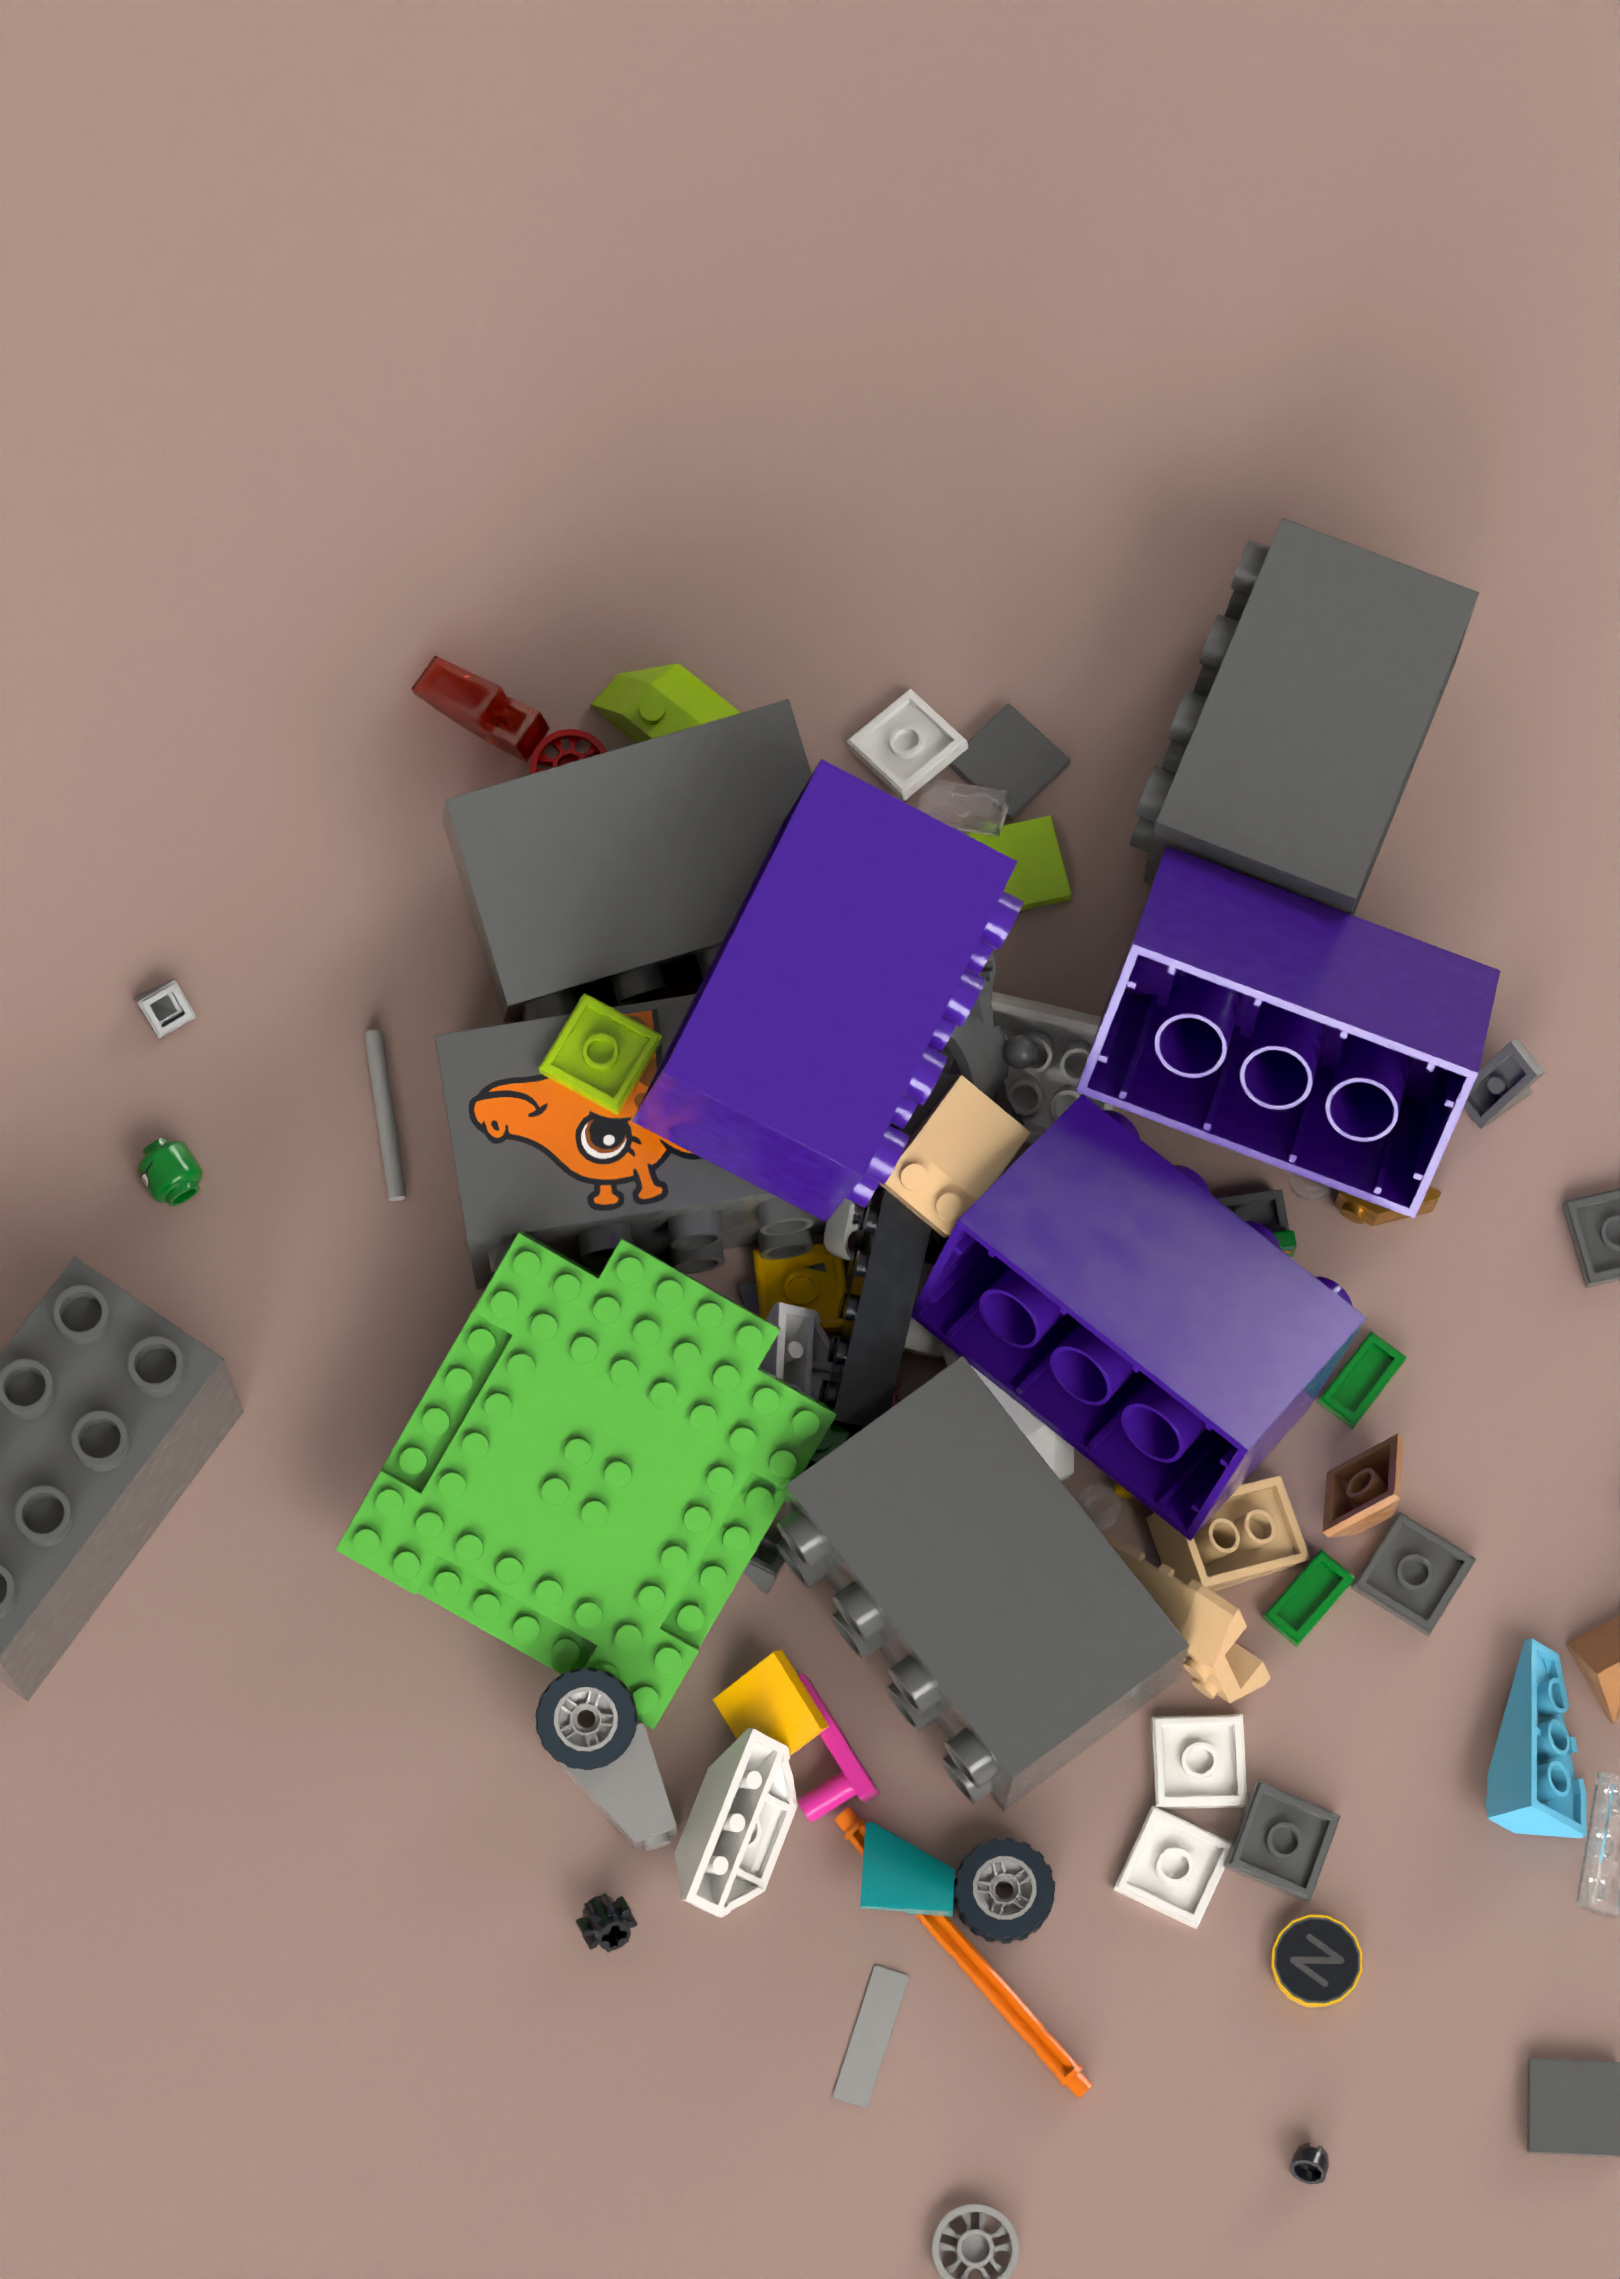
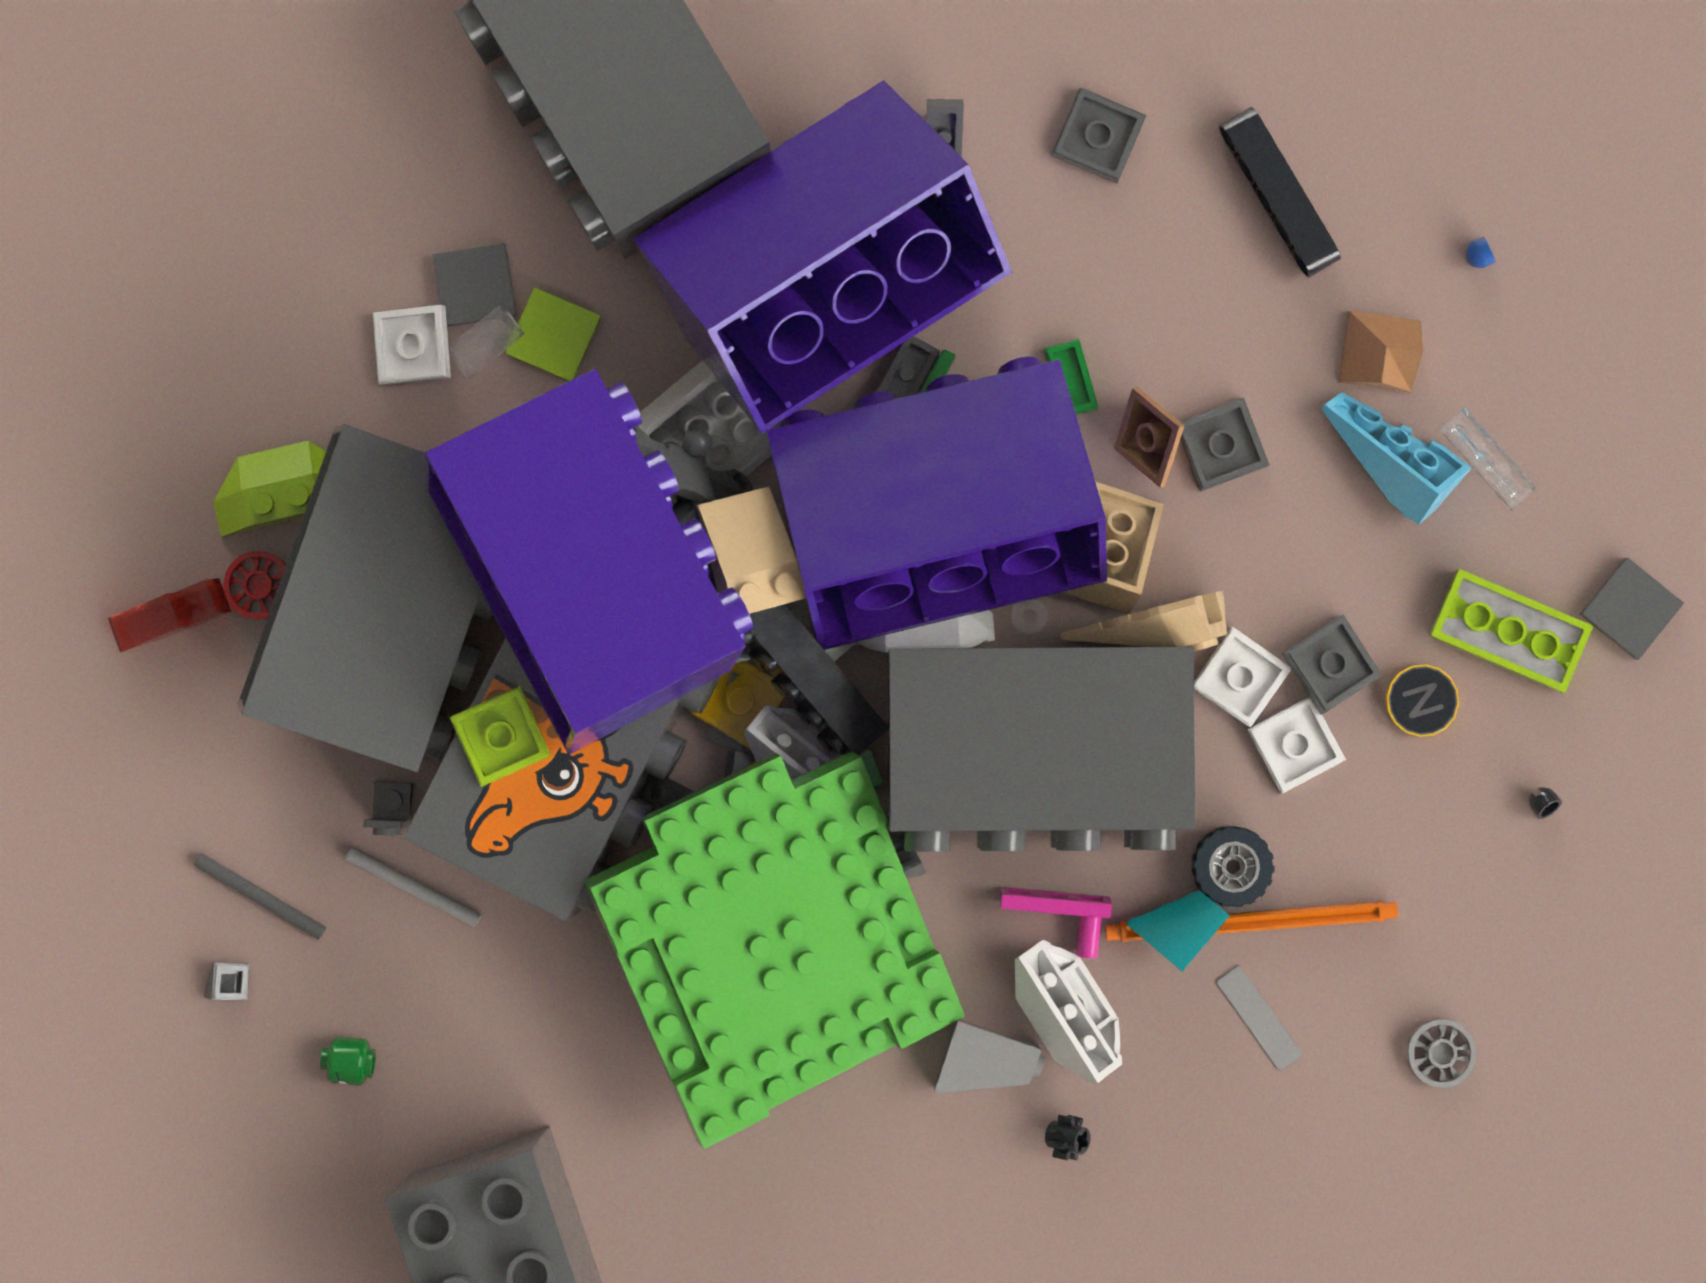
camera: 55 degrees left, 15 degrees up
(270, 980) = (259, 896): none -> dark grey bar
(425, 1030) = (390, 808): none -> dark grey bracket
(559, 1723) = (951, 1069): black wheel -> none
(773, 1703) = (1007, 929): yellow tile -> none
(1308, 1598) = (1187, 524): green tile -> none
(1455, 1998) = (1511, 630): none -> piece

